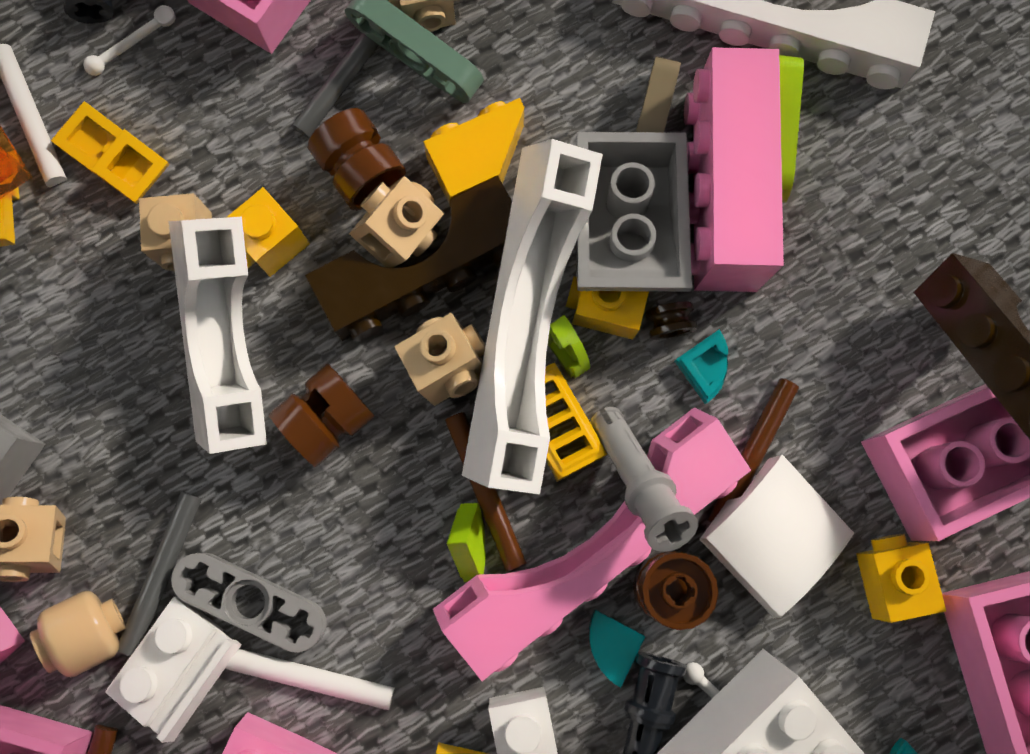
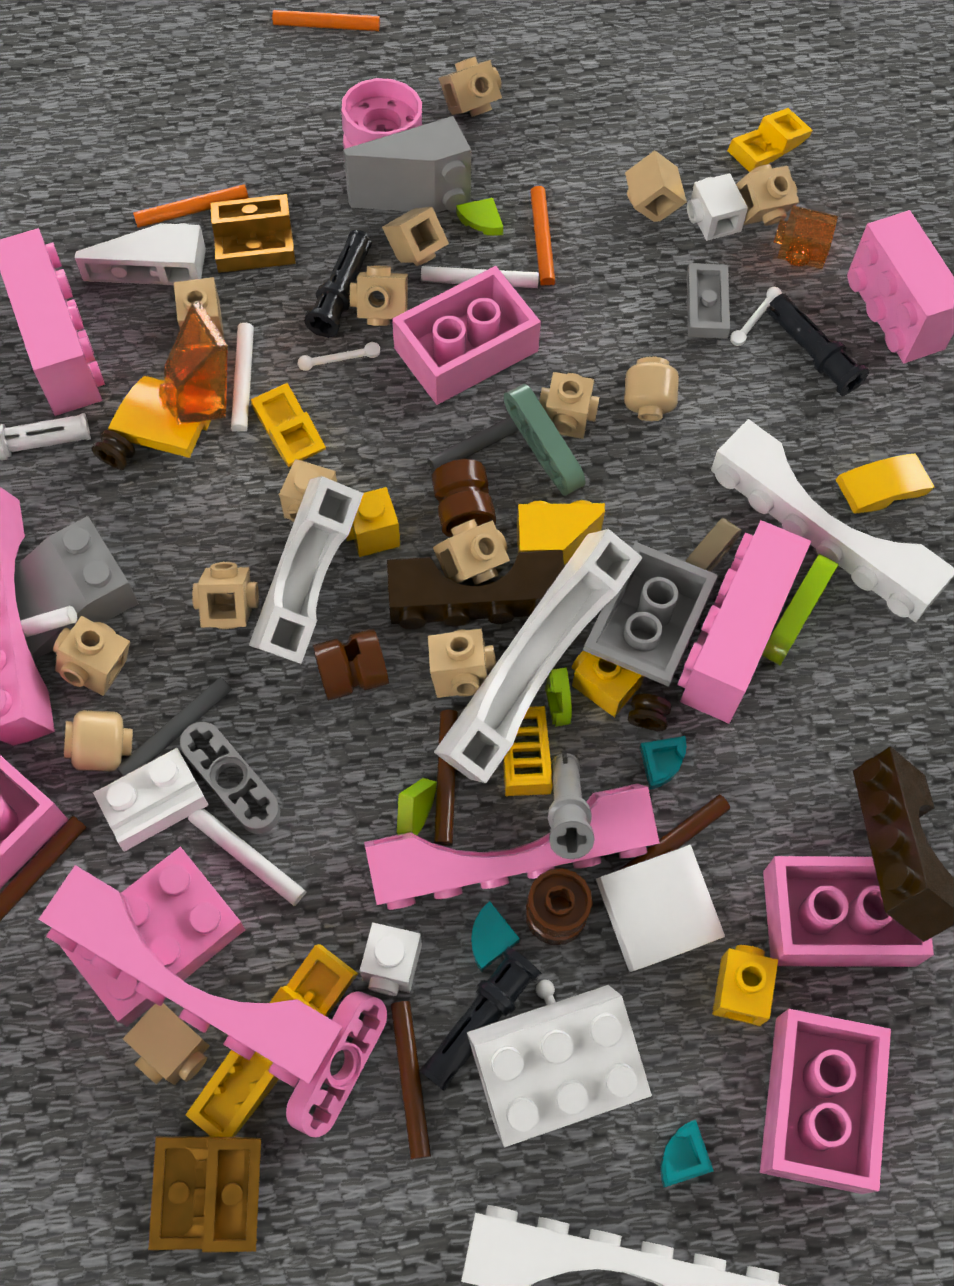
camera: 25 degrees right, 15 degrees down
(140, 399) = (218, 607): none -> tan brick

